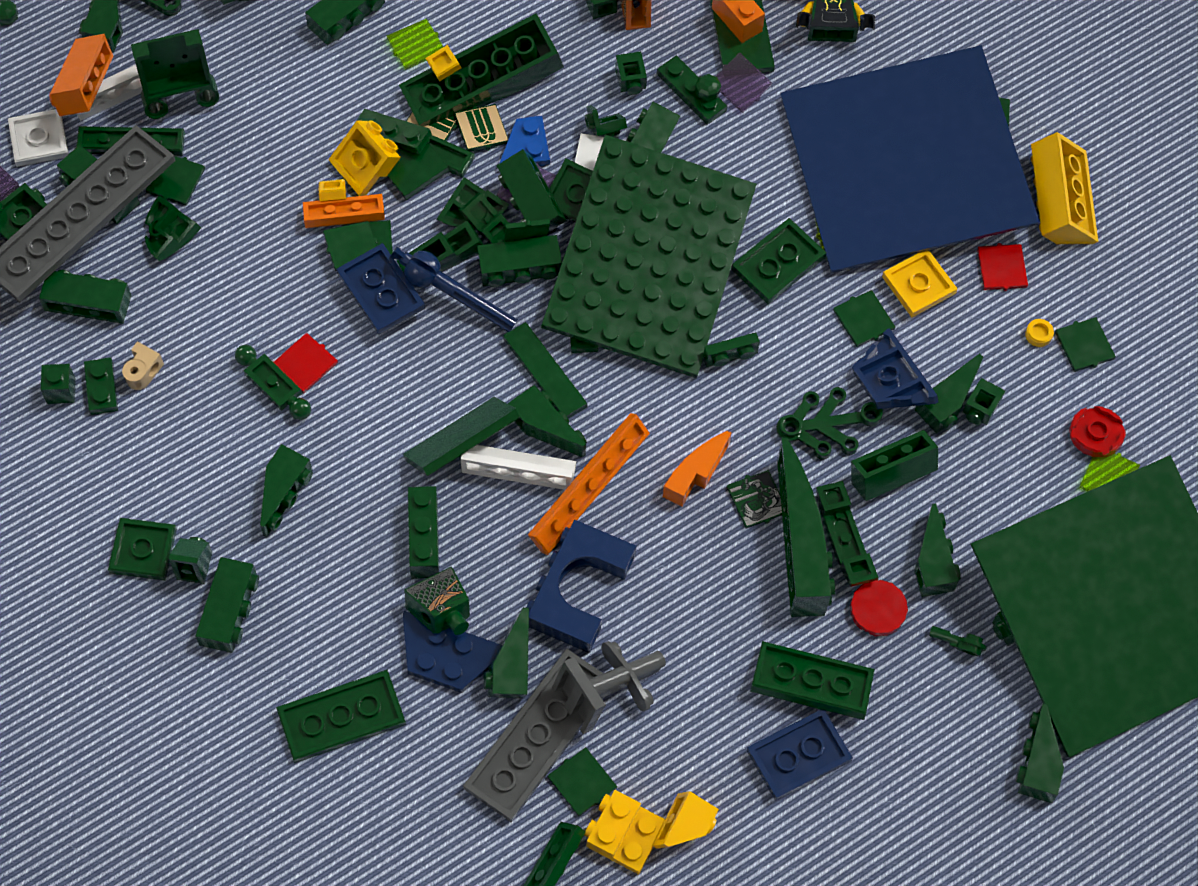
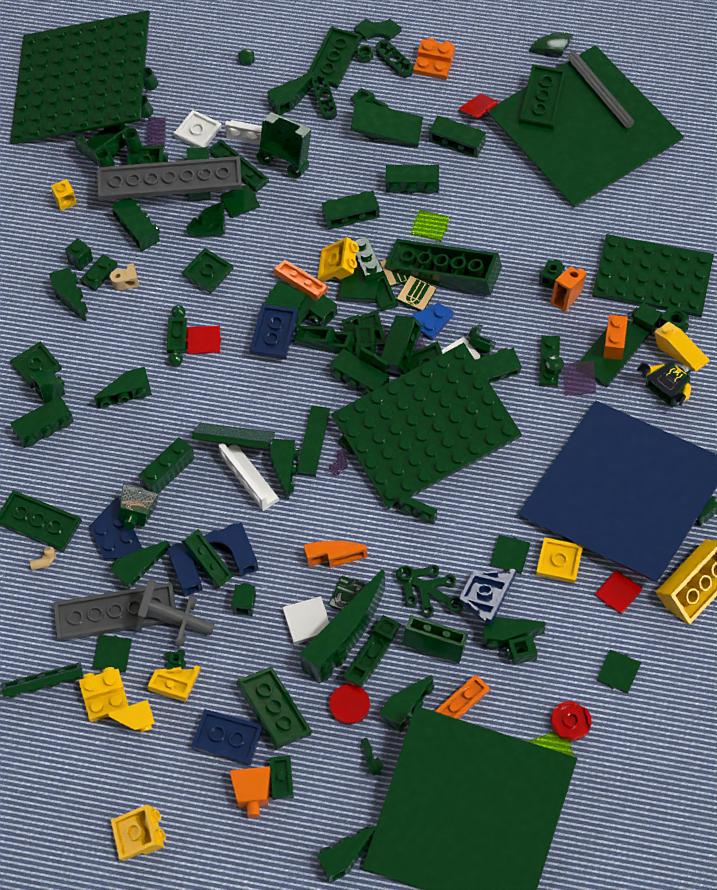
camera: 50 degrees right, 5 degrees down
(81, 75) = (241, 112): orange brick -> none
(88, 436) = (66, 291): none -> dark green slope
(227, 283) = (207, 270): none -> dark green plate
(315, 92) = (350, 210): none -> dark green brick
(332, 190) = (306, 265): yellow tile -> none
(400, 750) = (45, 561): none -> tan arm
(406, 225) = (322, 311): none -> dark green brick
(424, 270) = (301, 338): dark blue piece -> none
(443, 63) = (427, 243): yellow tile -> none
(581, 588) = (207, 558): none -> dark green plate
(589, 483) = (273, 512): orange tile -> none
(600, 370) = (342, 463): none -> clear purple arm
(631, 72) = (523, 325): dark green brick -> none
(658, 734) = (174, 664): none -> dark green plate
(660, 598) = (244, 599): none -> dark green brick
(684, 749) = (174, 682): none -> yellow wing
(744, 562) = (306, 619): none -> white tile
(778, 261) = (495, 485): dark green plate -> none
(883, 783) = (252, 788): none -> orange torso
(897, 743) = (281, 777): none -> dark green plate
(981, 502) = (464, 698): none -> orange plate
(1039, 332) = (599, 643): yellow tile -> none

